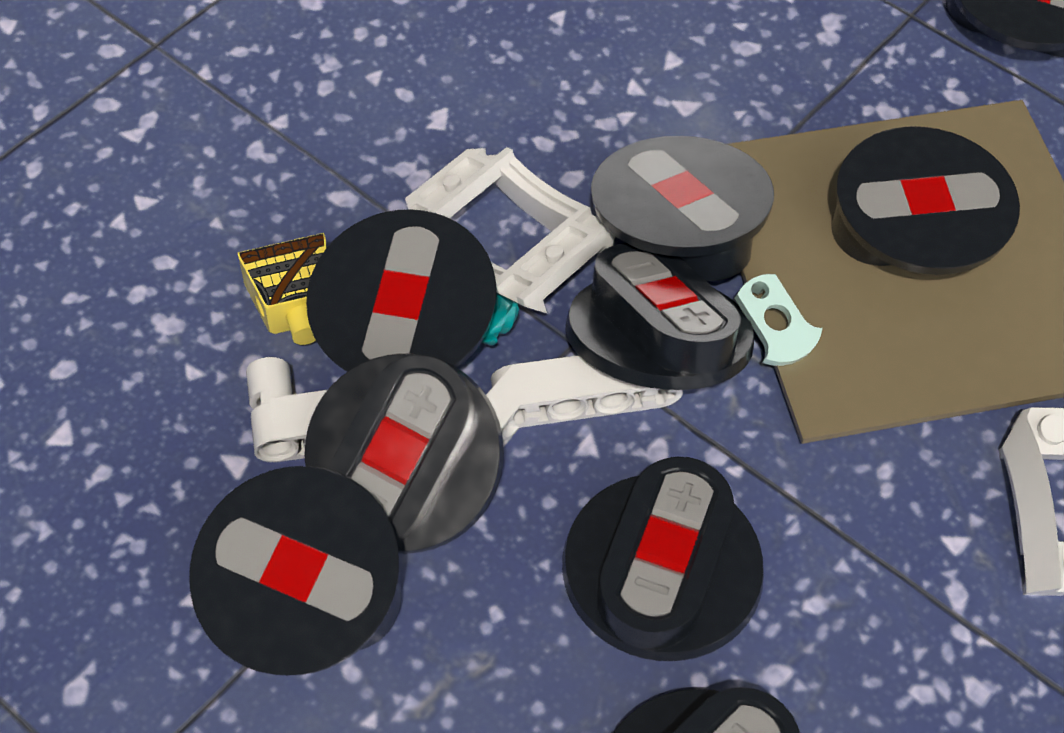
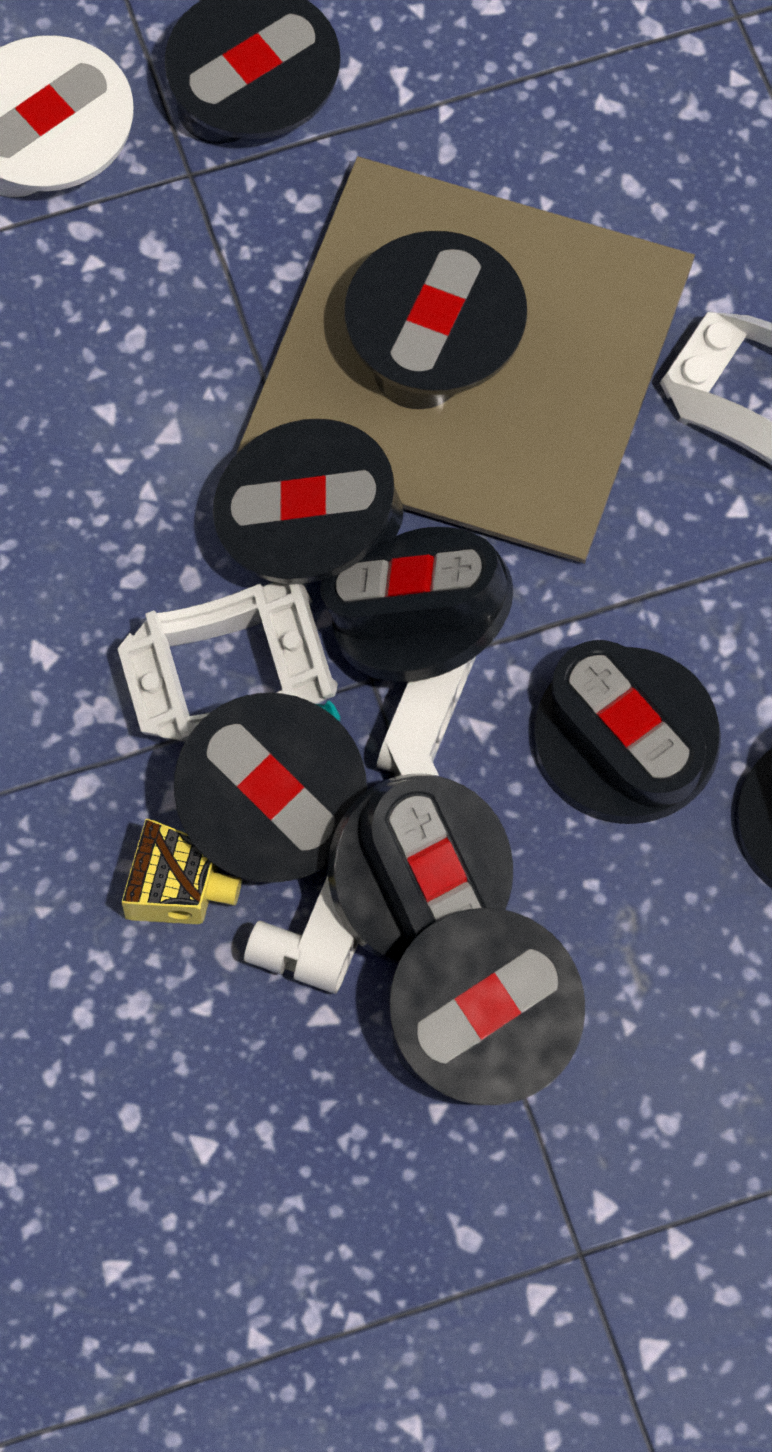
camera: 55 degrees left, 10 degrees up
(781, 346) = (493, 501): light aqua piece -> none

